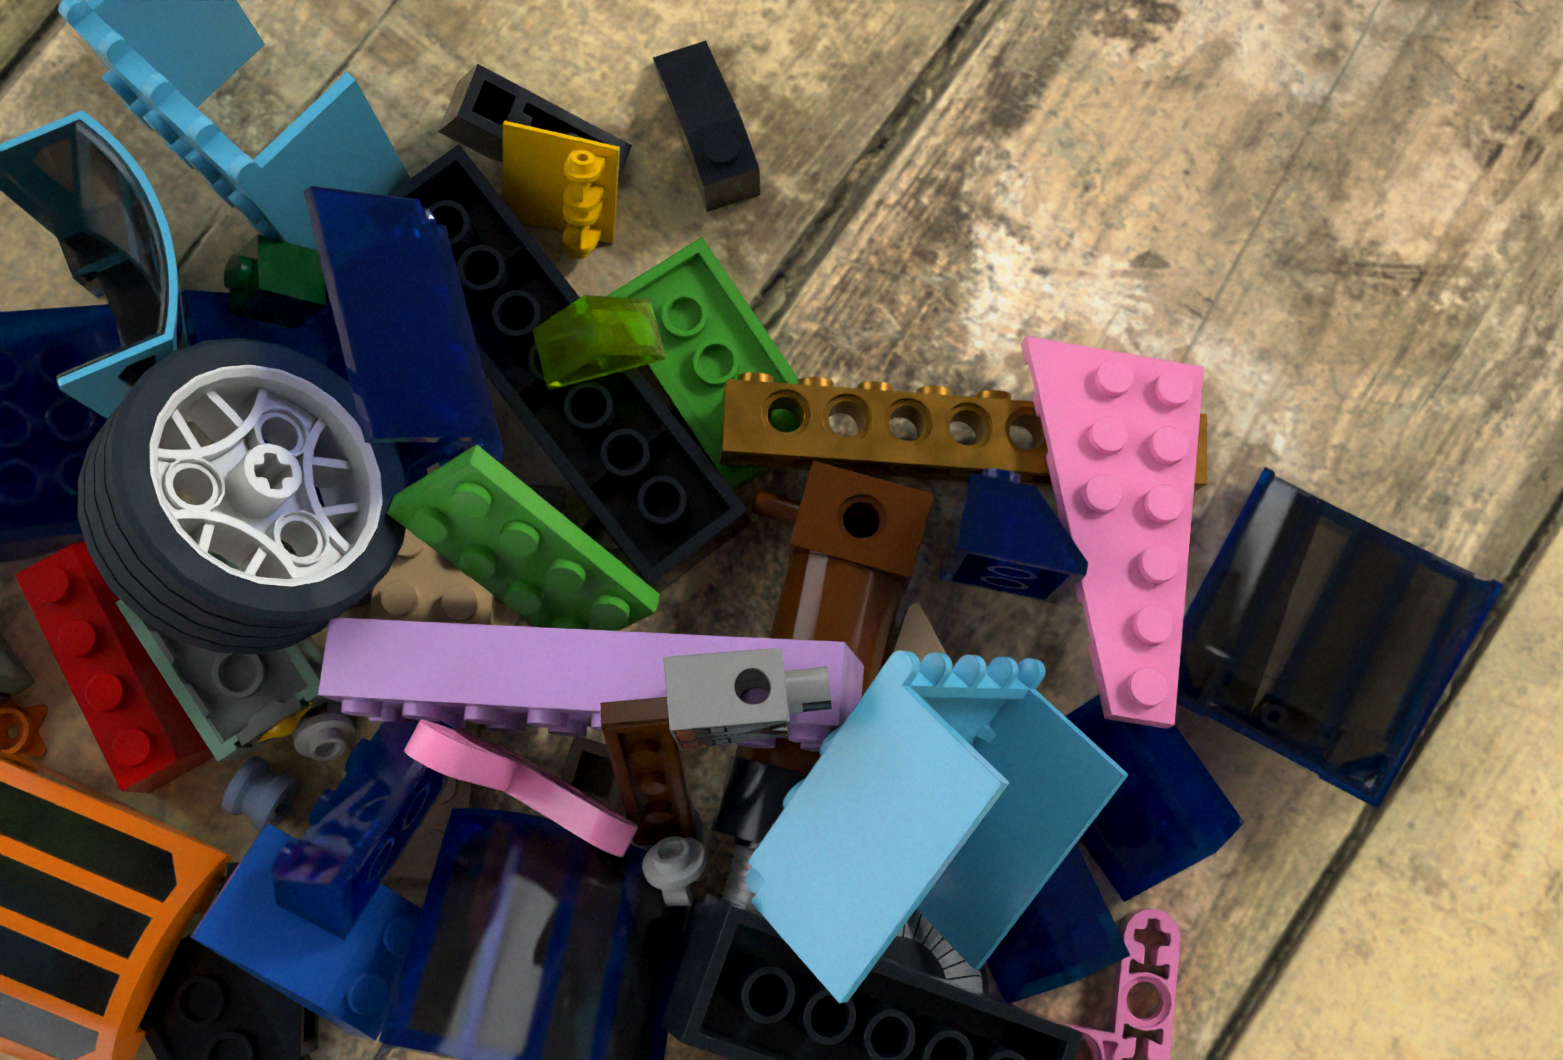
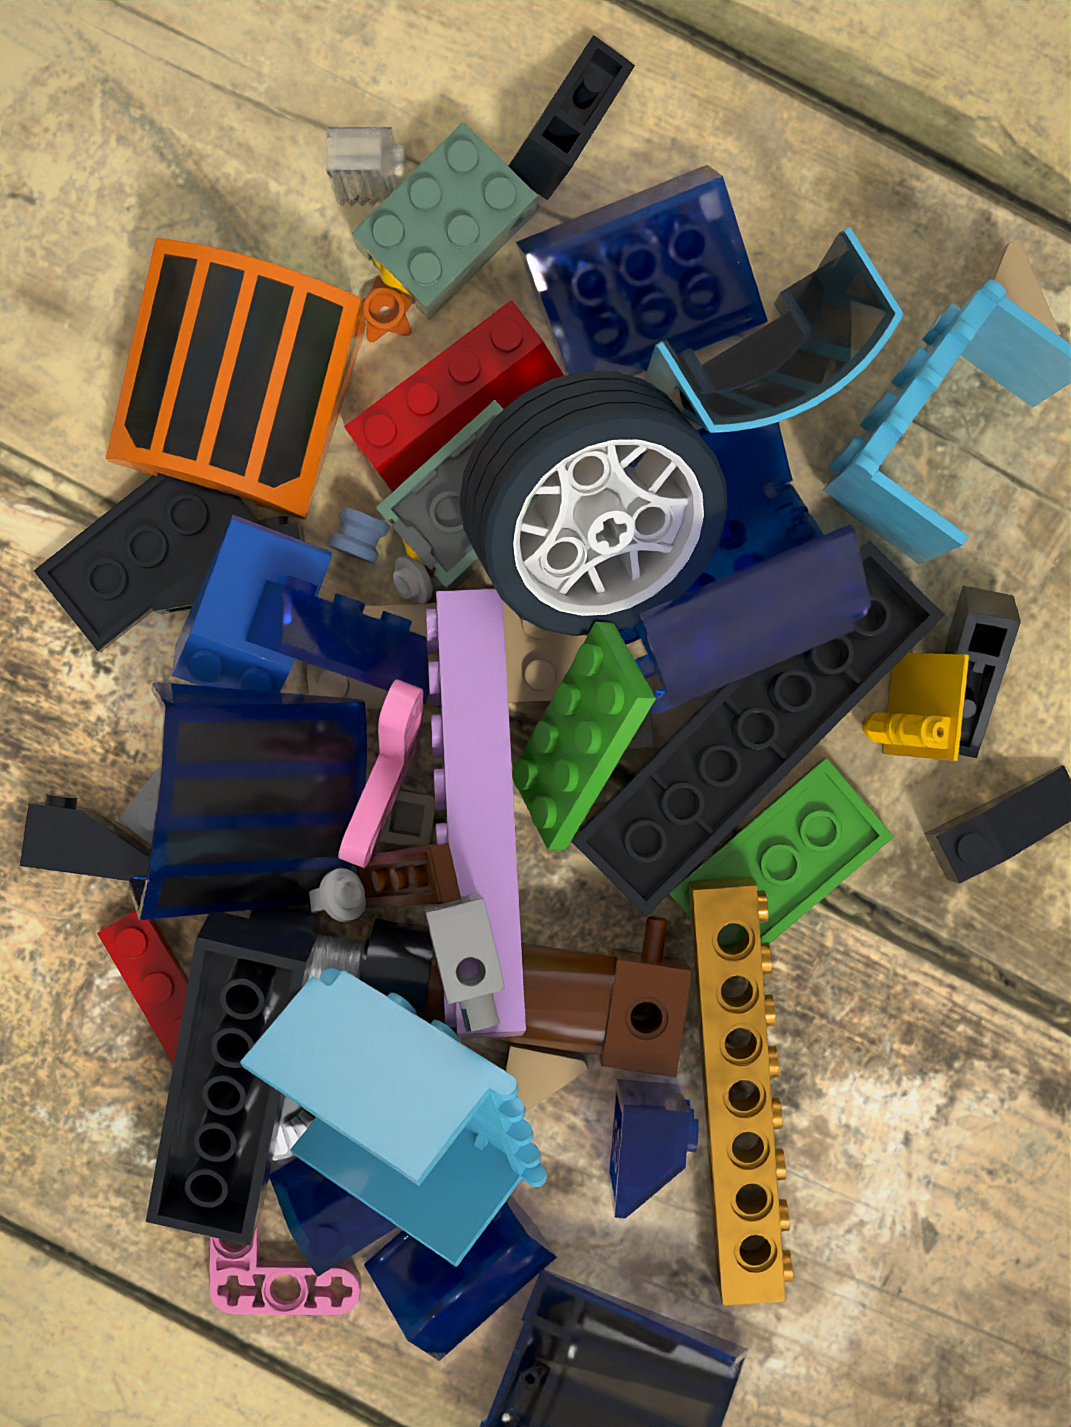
camera: 80 degrees right, 10 degrees up
(275, 282) = (797, 475): dark green brick -> none
(597, 339) = (777, 768): clear neon green slope -> none
(1124, 491) = (707, 1236): bright pink wing -> none

